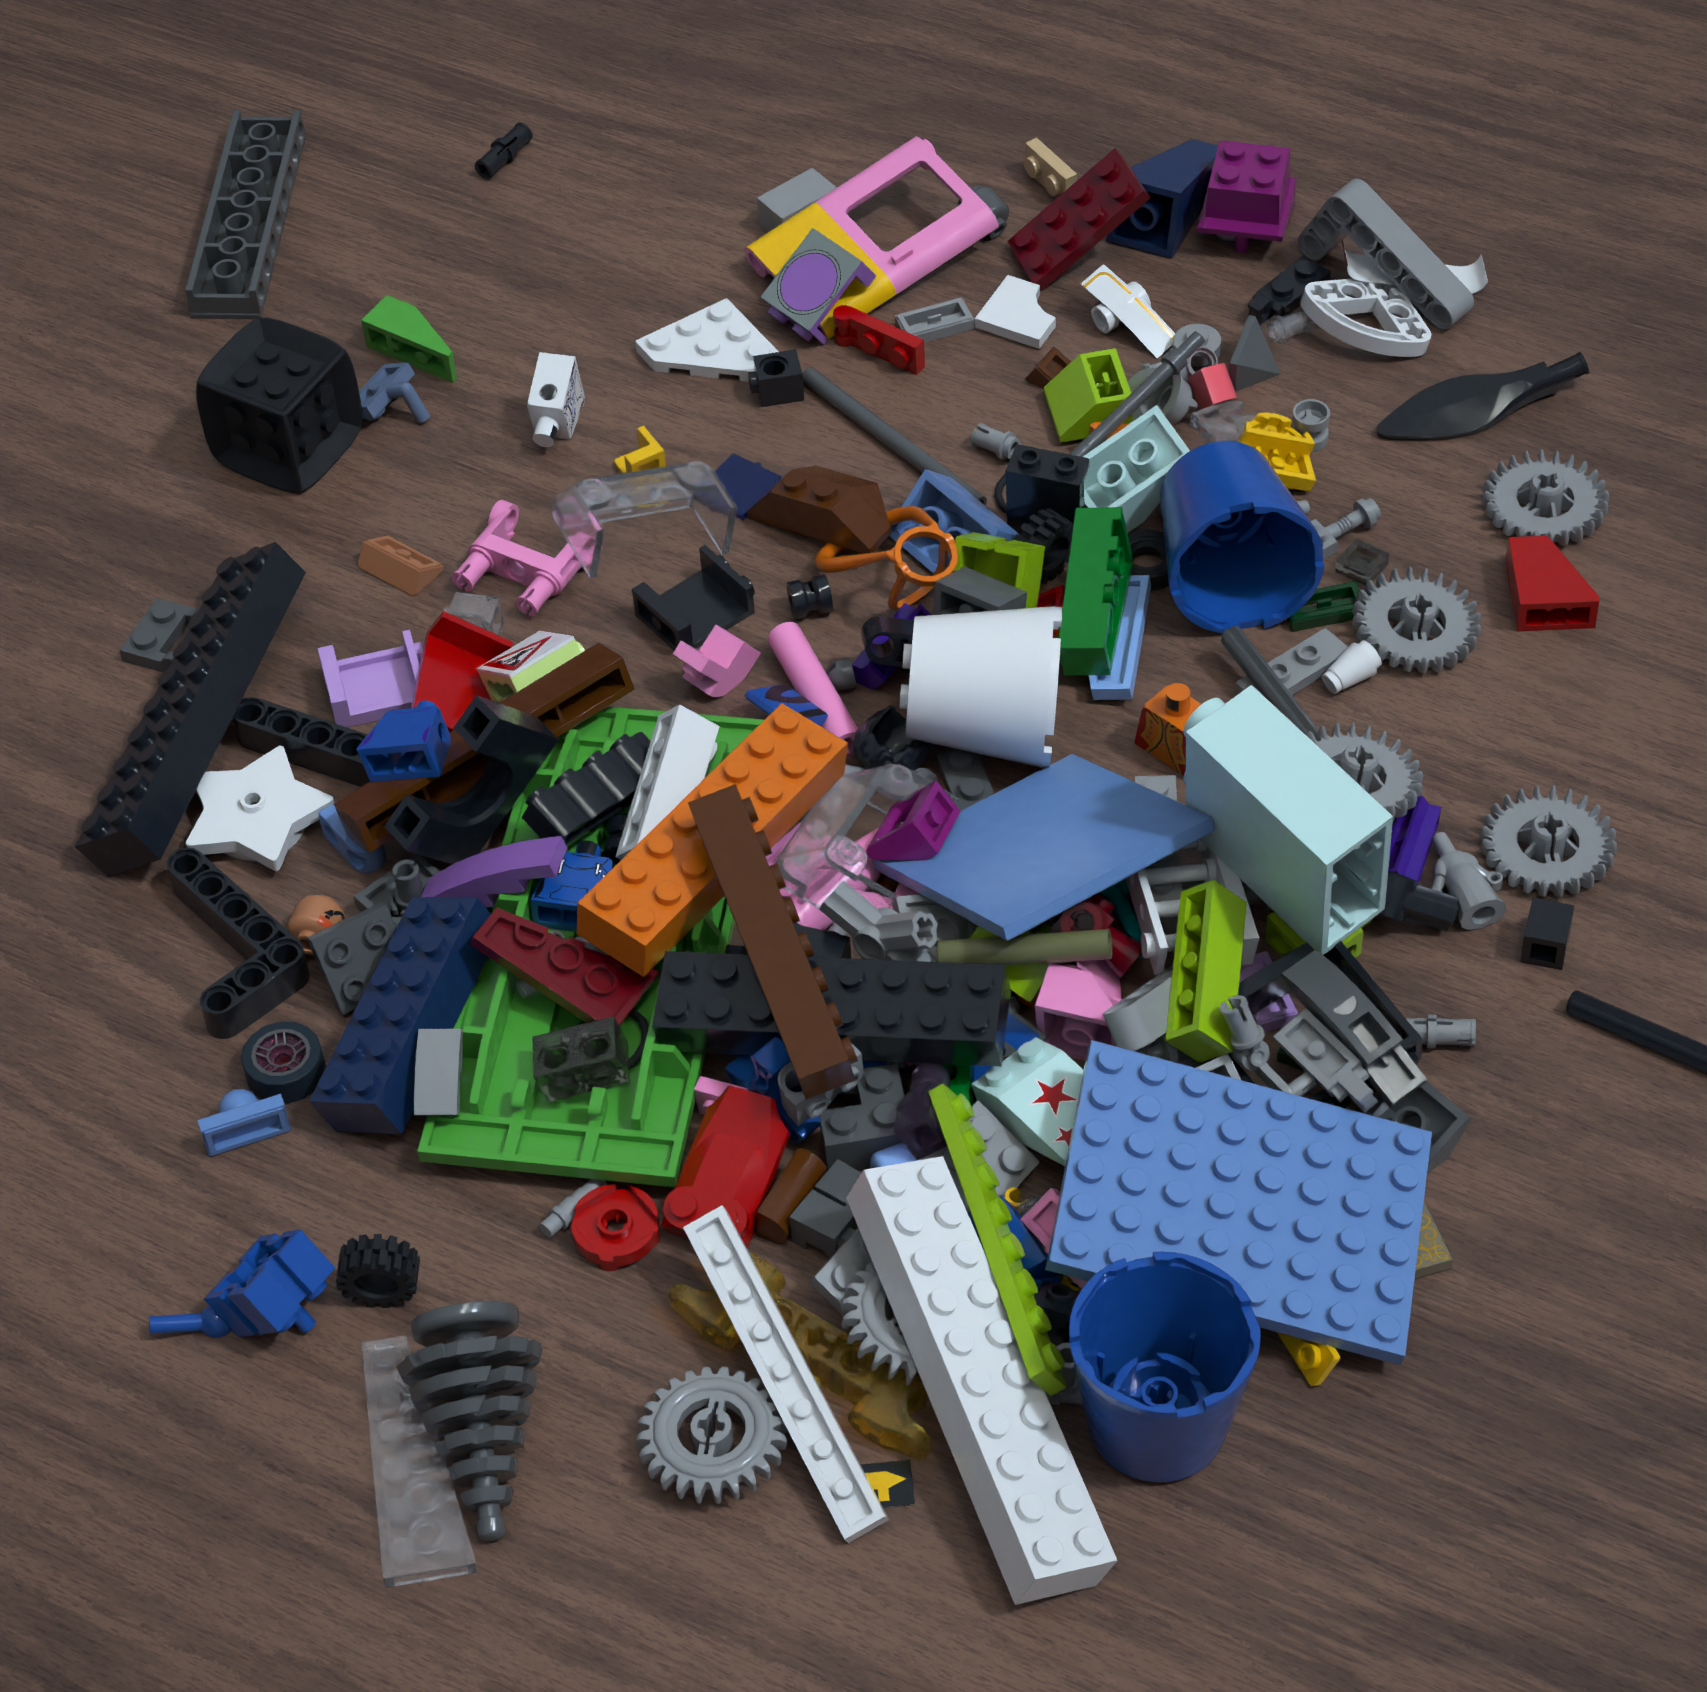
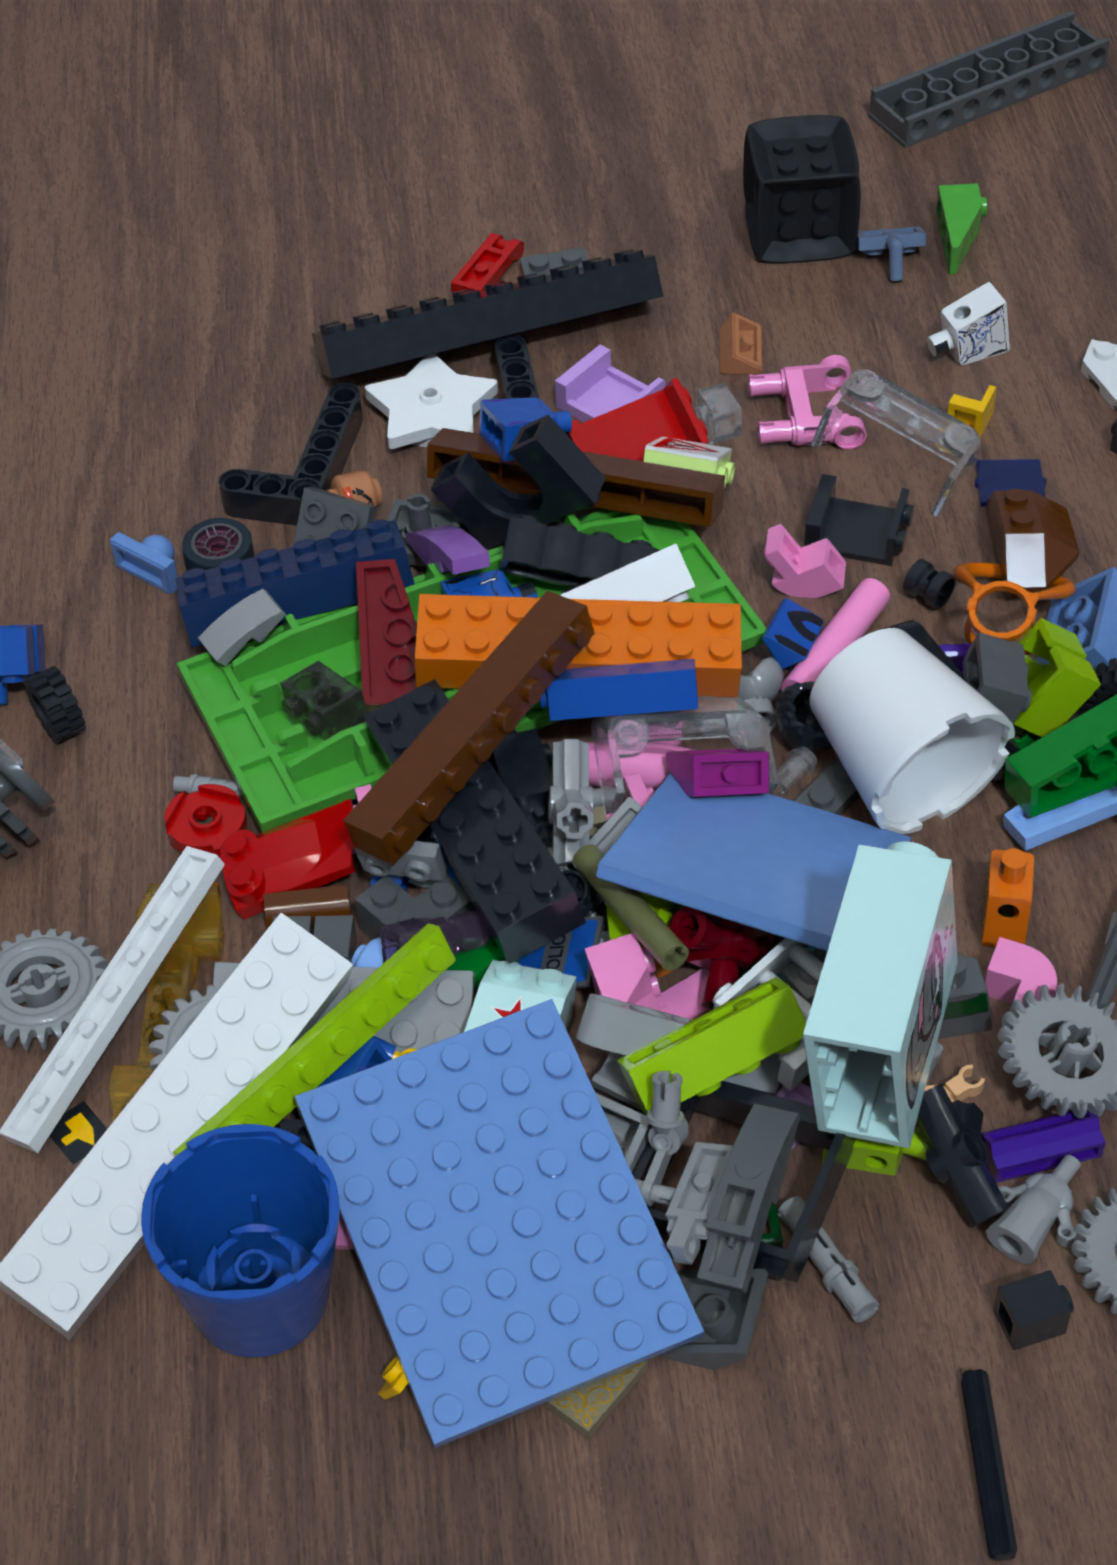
camera: 55 degrees right, 0 degrees up
(105, 680) = (488, 263): none -> red plate
(811, 819) = (622, 690): none -> blue brick

